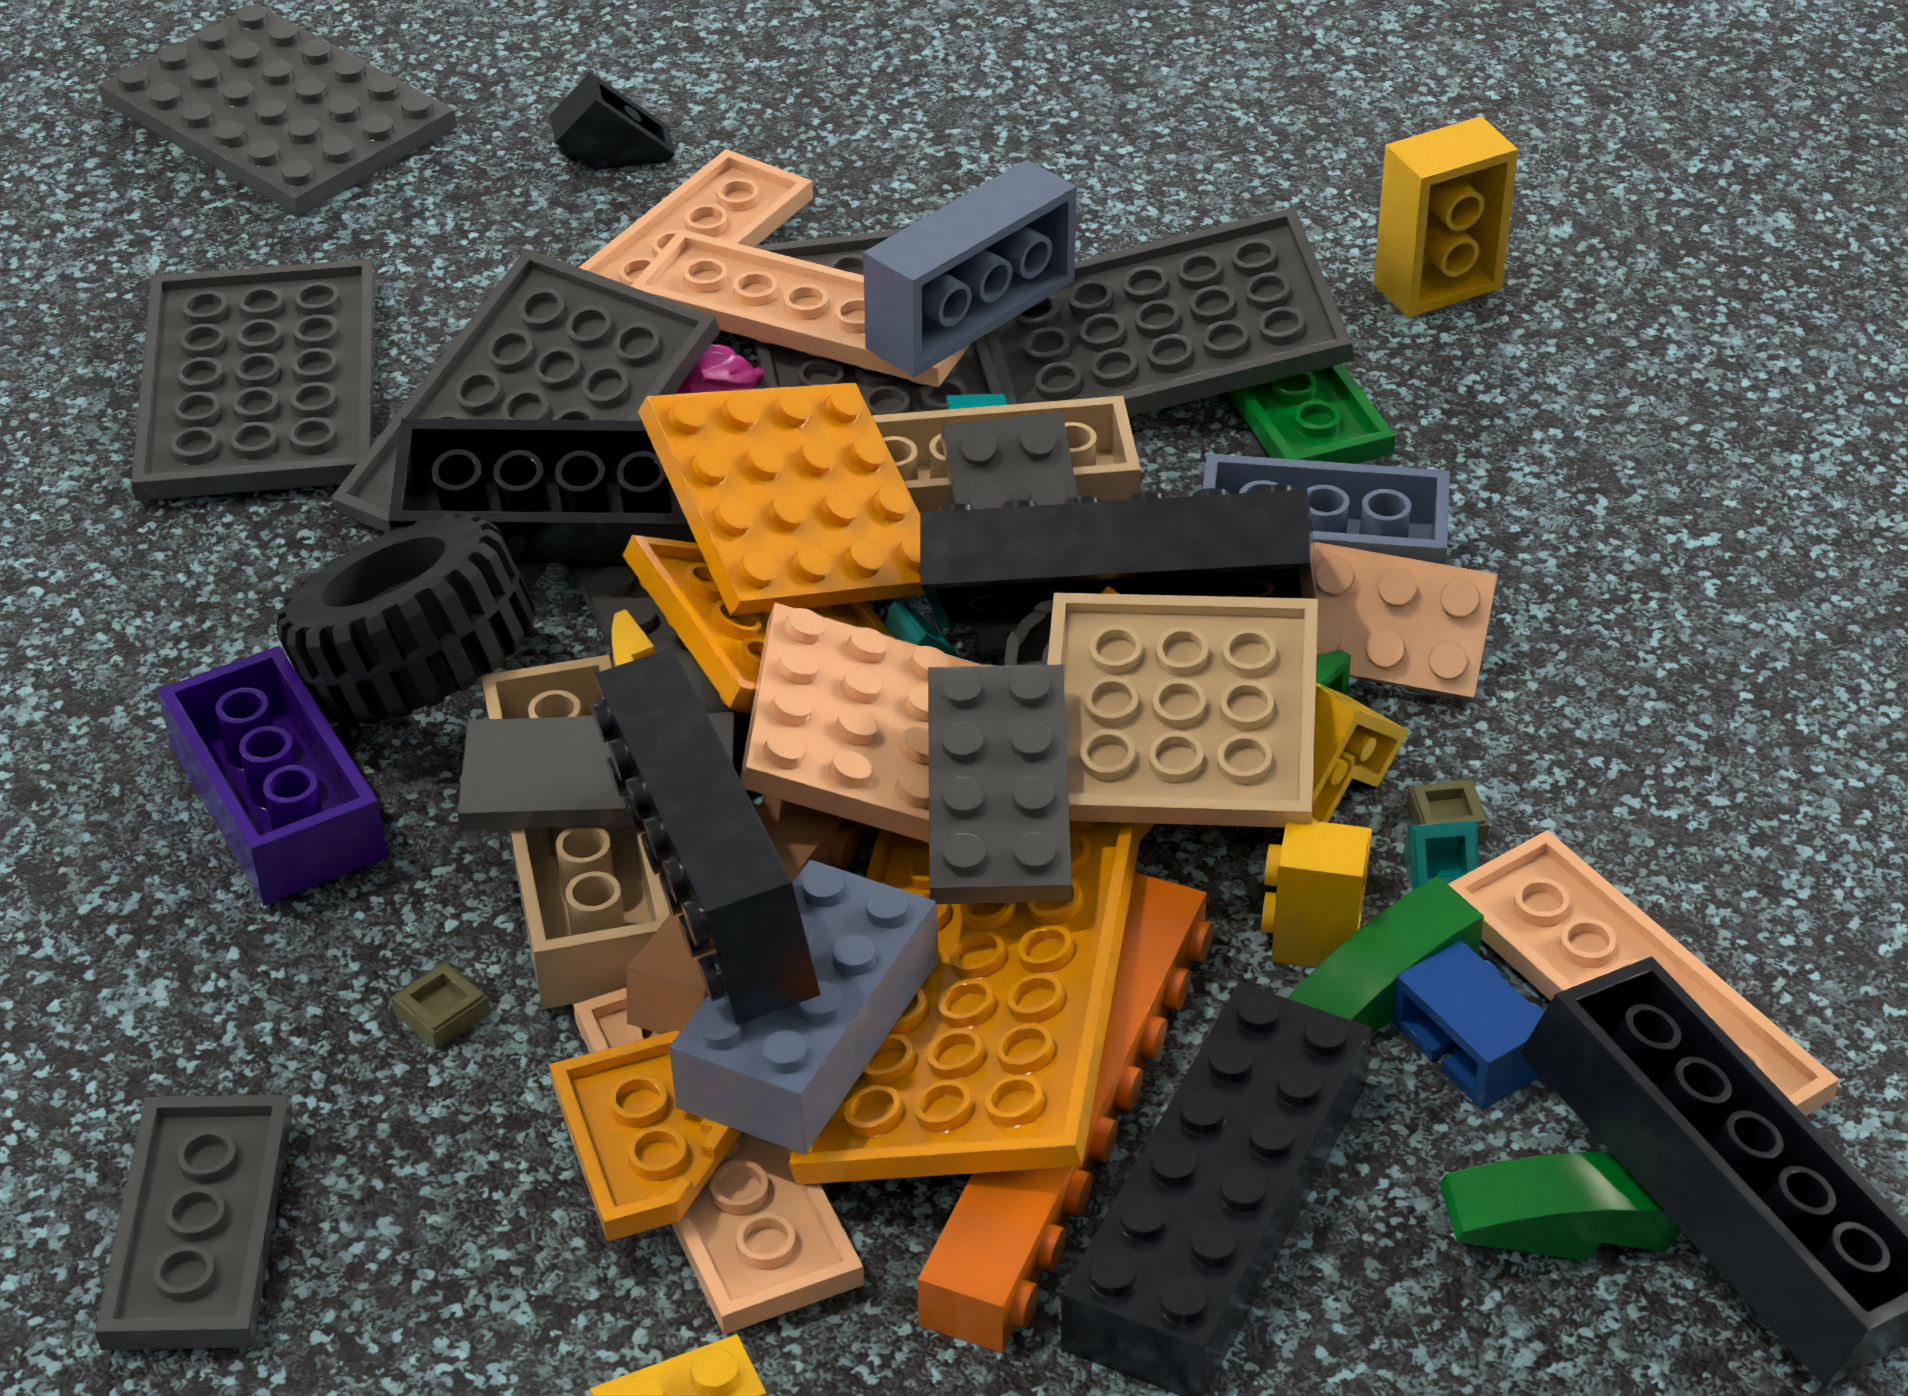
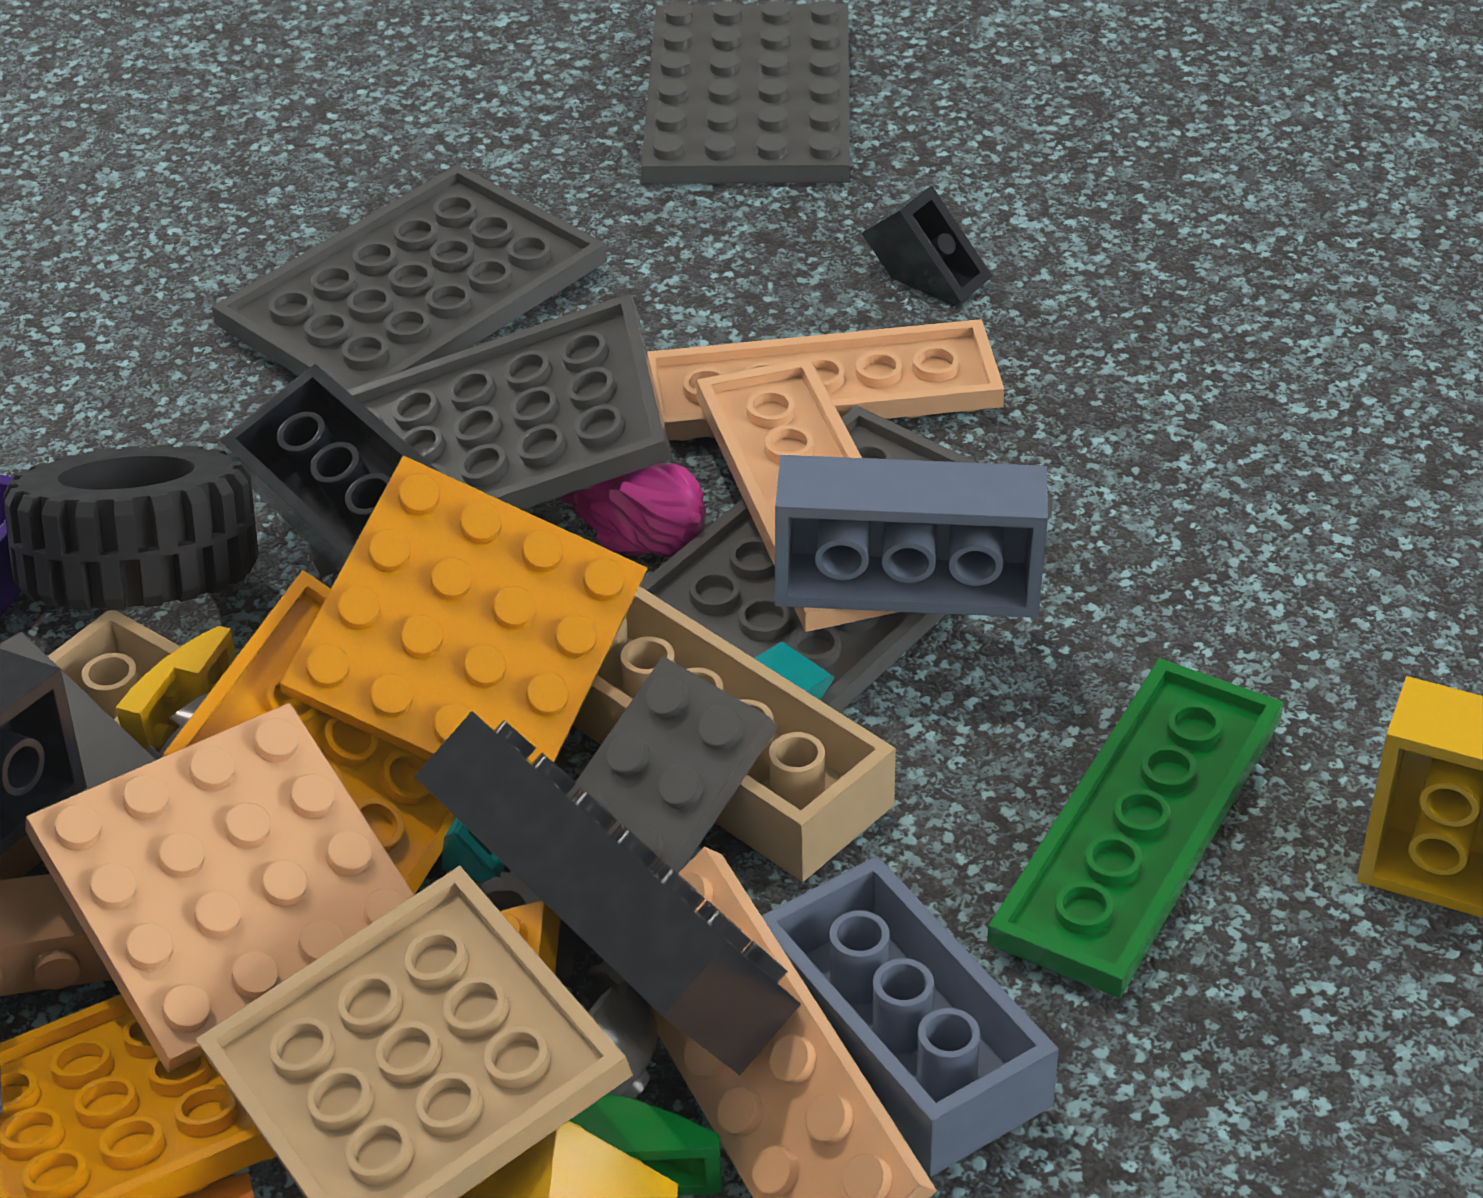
camera: 50 degrees right, 0 degrees up
(998, 785) = (181, 996): dark grey plate -> none
(1178, 320) = (1080, 721): dark grey plate -> none

